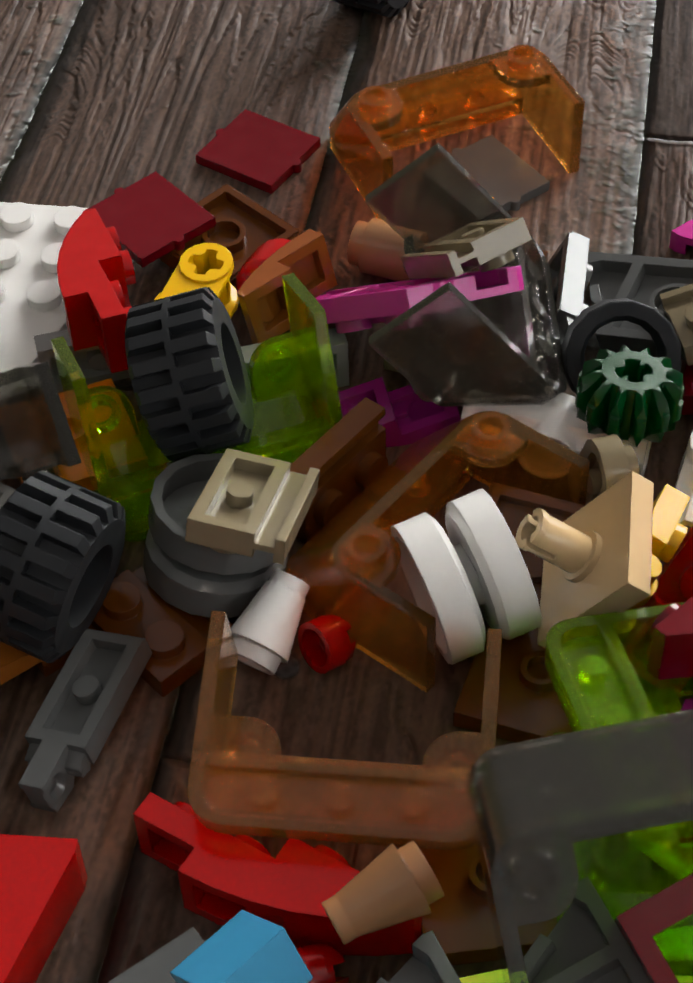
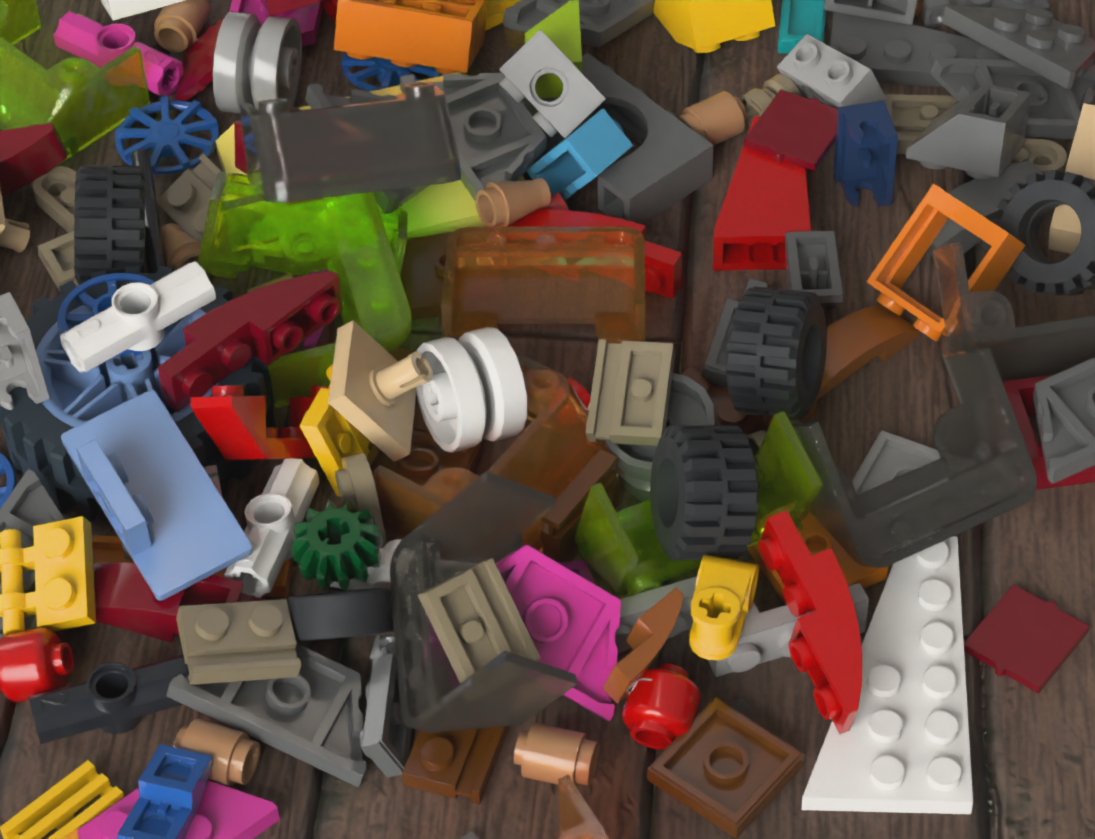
camera: 175 degrees right, 0 degrees up
(153, 218) = (803, 763): dark red piece -> none

